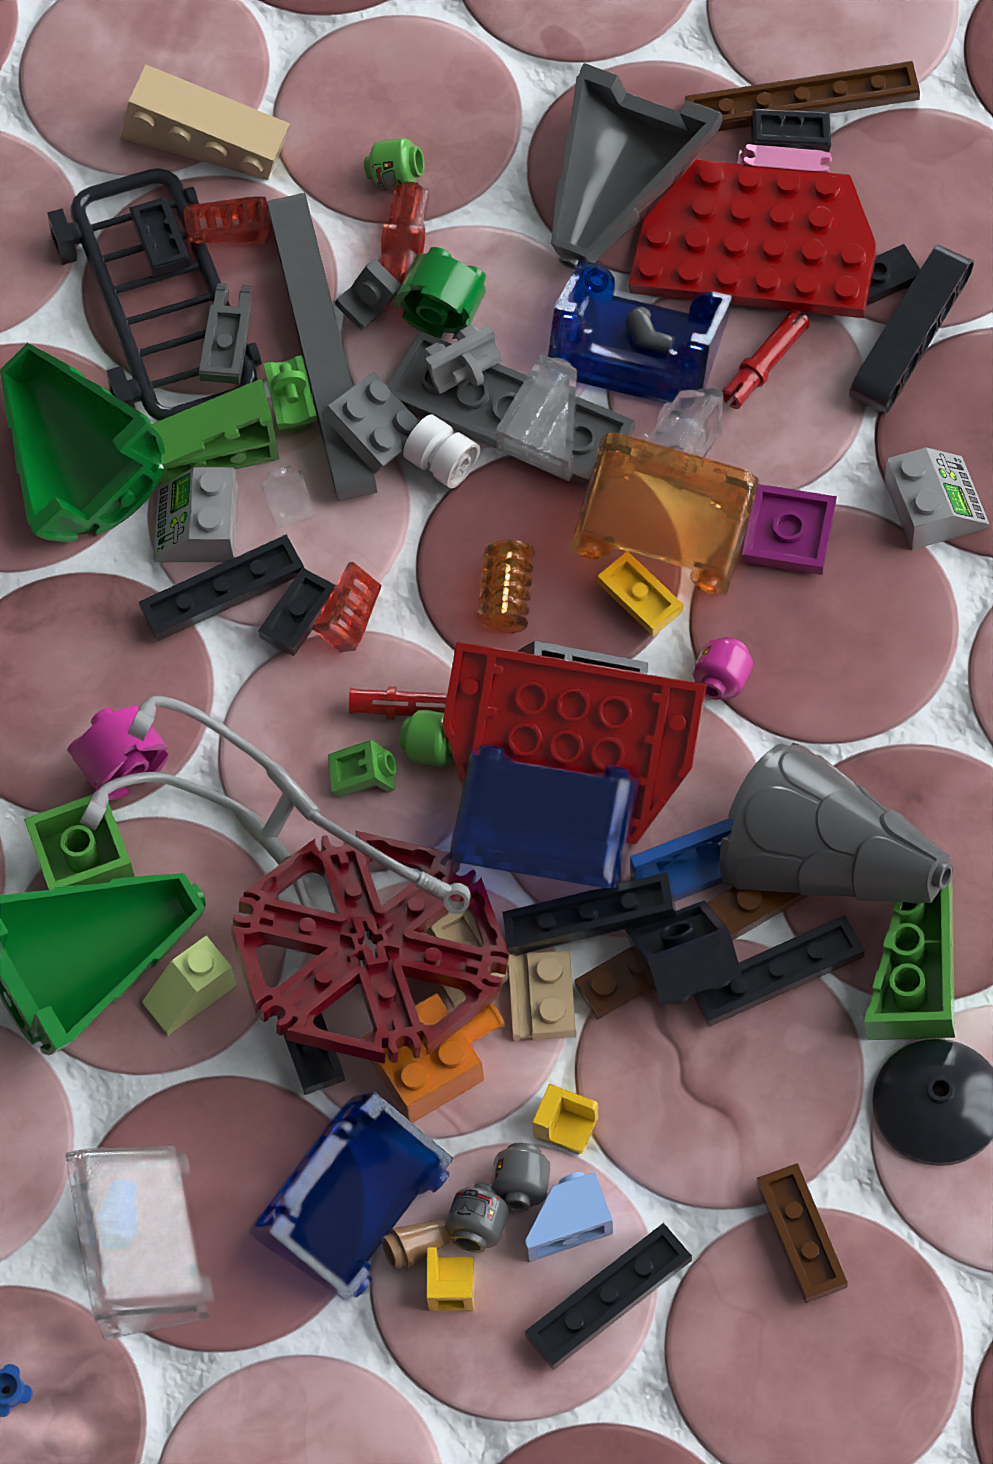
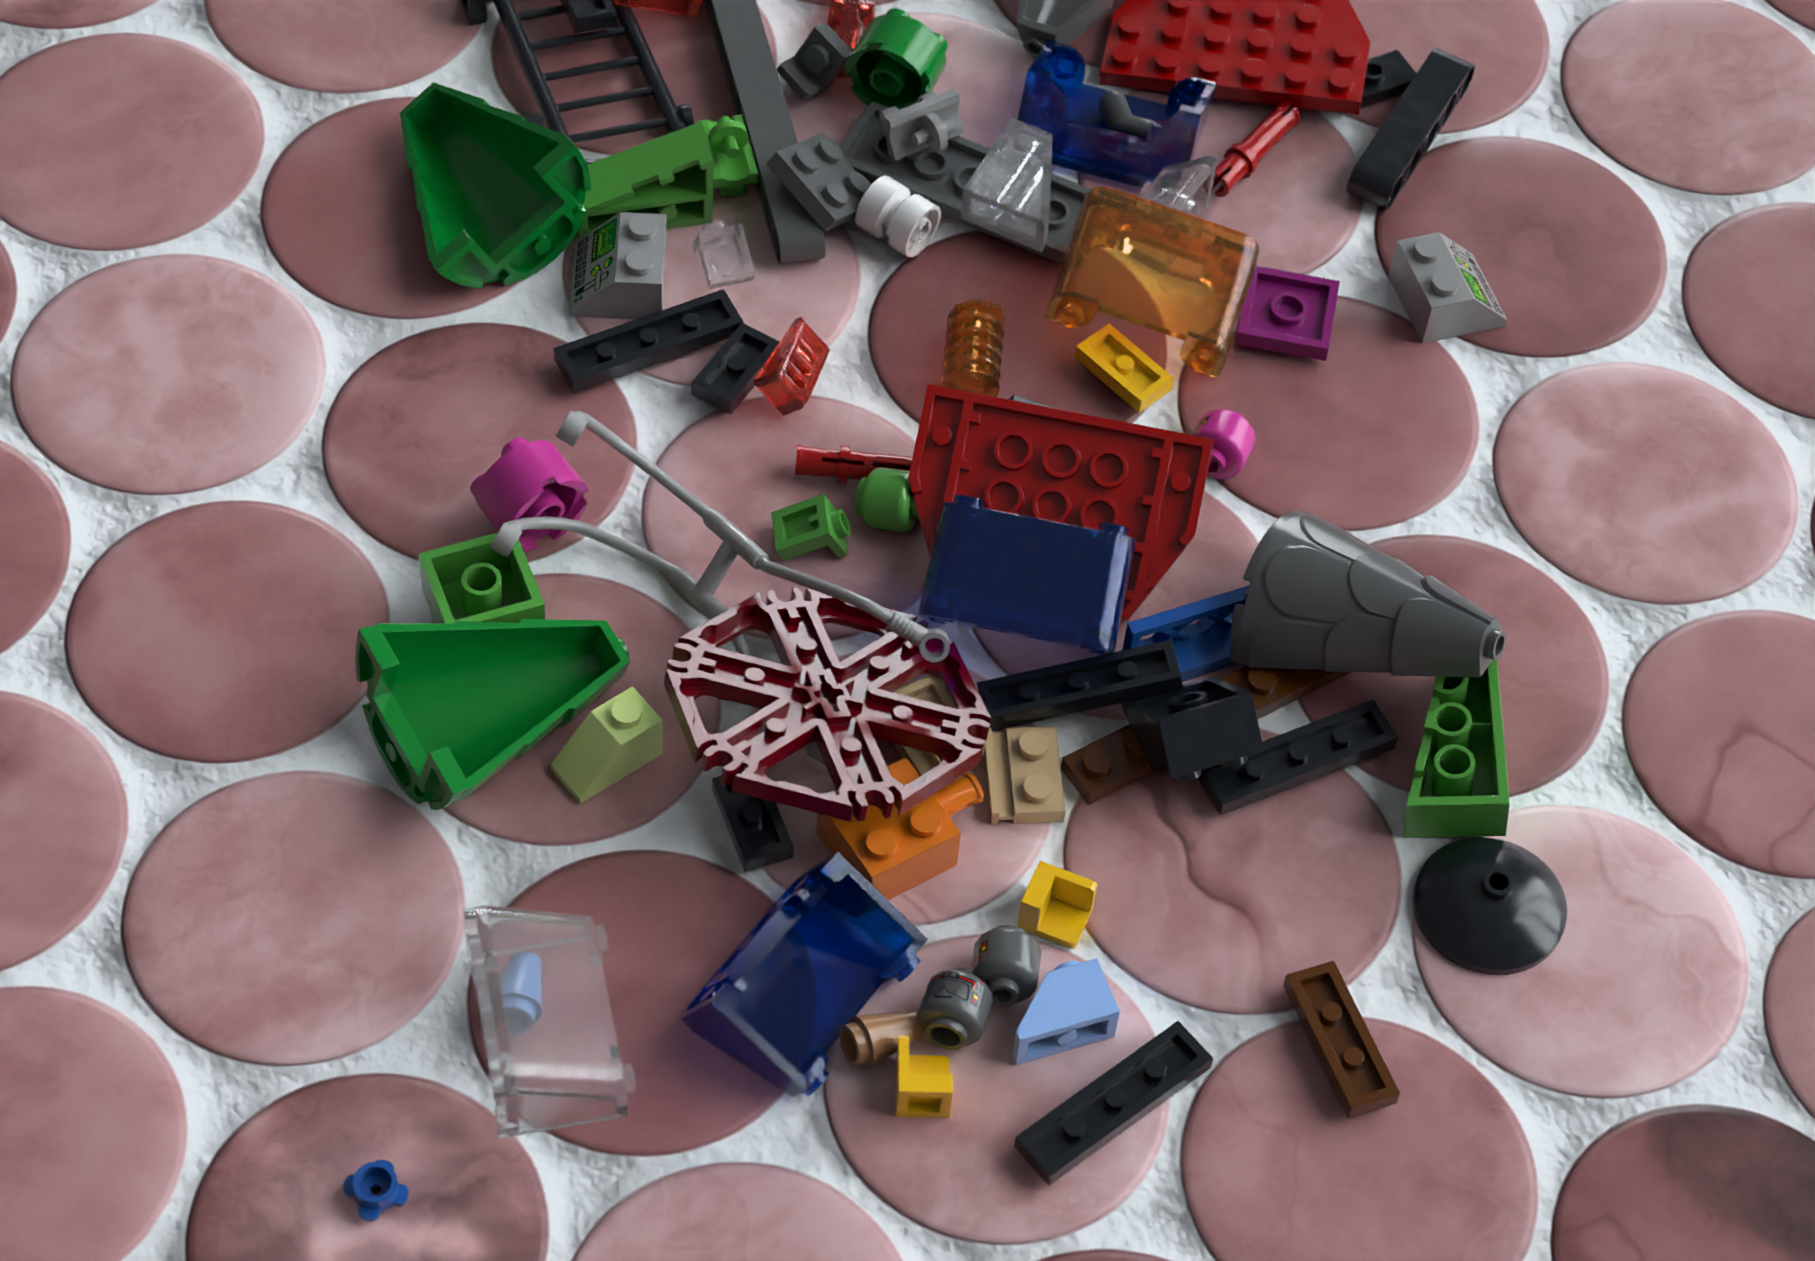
camera: 10 degrees left, 10 degrees down
(226, 337) = (656, 92): dark grey hinge -> none

